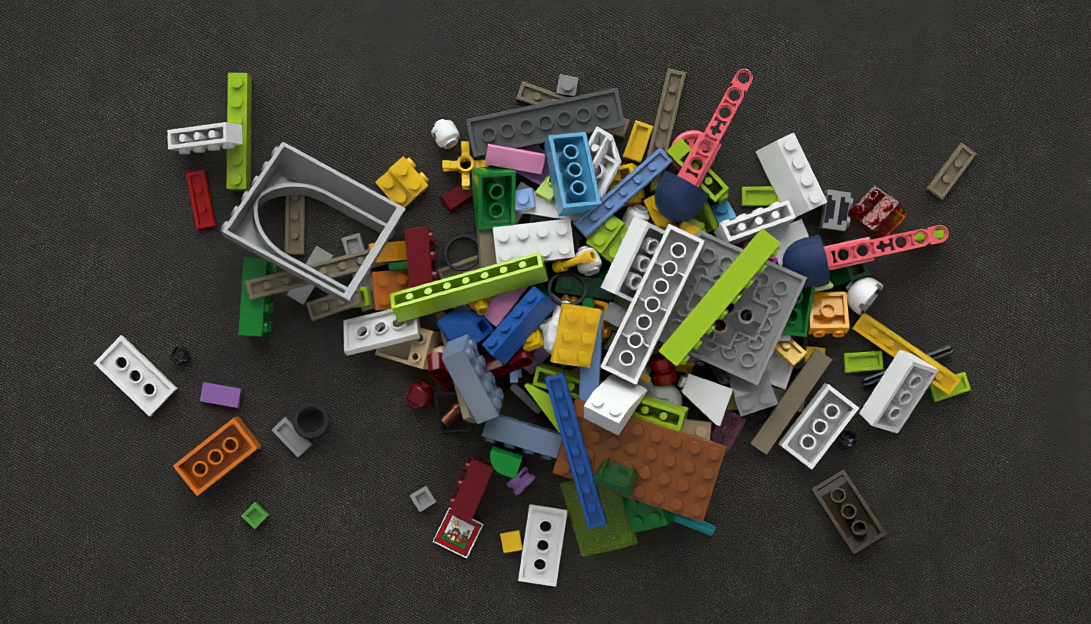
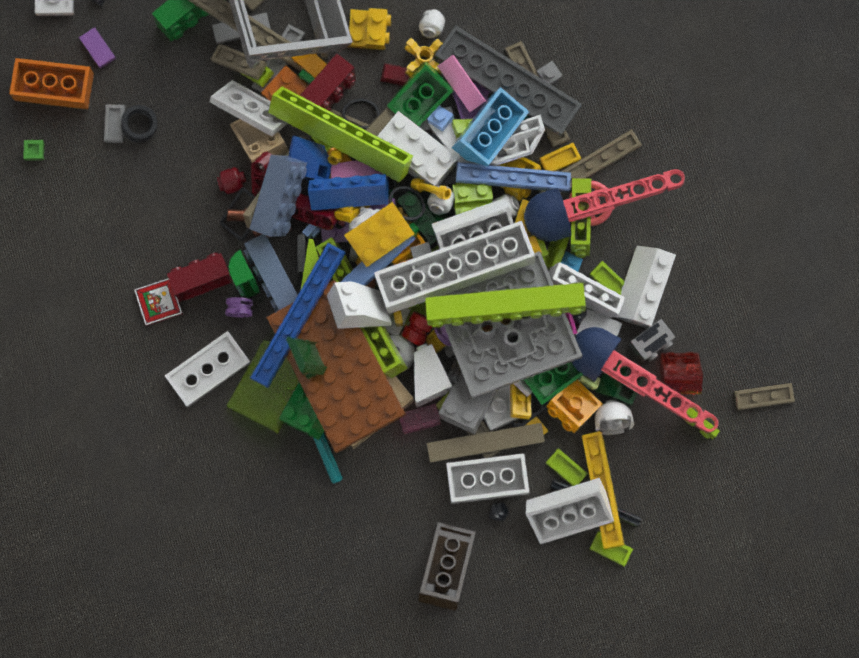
camera: 45 degrees right, 10 degrees down
(423, 498) = (159, 253): light grey plate -> none
(511, 541) = (188, 345): yellow tile -> none

